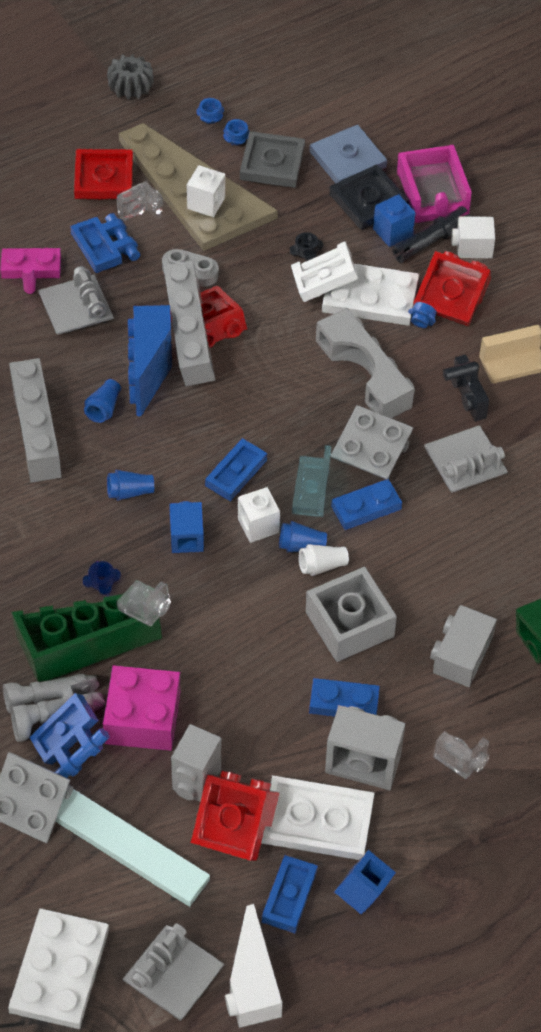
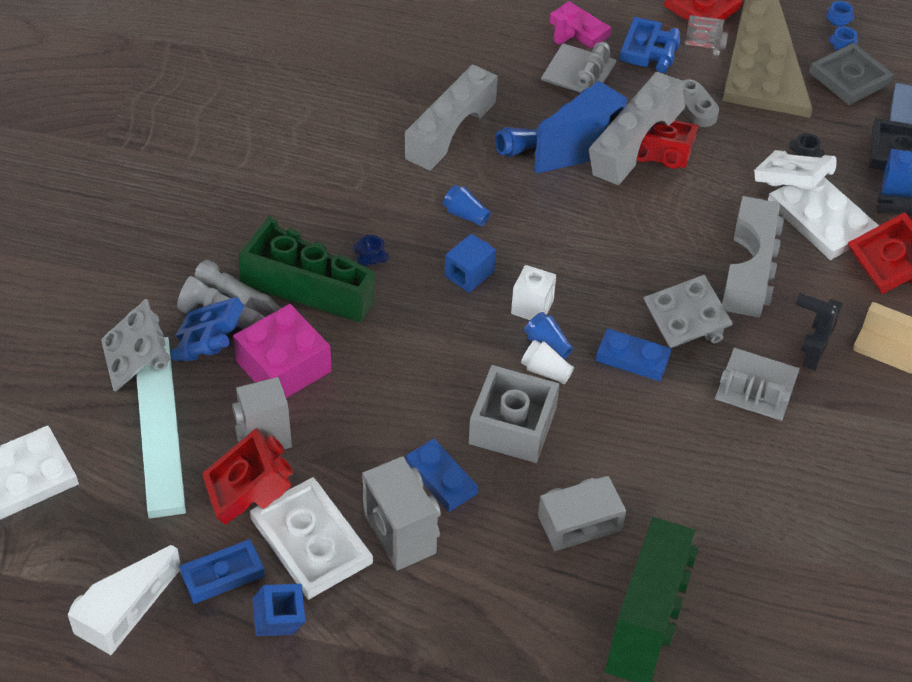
camera: 45 degrees right, 5 degrees down
(145, 602) = (358, 275): clear bracket -> none
(173, 971) = (76, 549): light grey hinge -> none
(206, 191) = (760, 52): white brick -> none
(236, 469) = (559, 253): blue plate -> none
(312, 484) = (607, 308): clear light blue panel -> none
(422, 315) = (846, 257): blue plate -> none
(458, 756) = (477, 596): clear bracket -> none

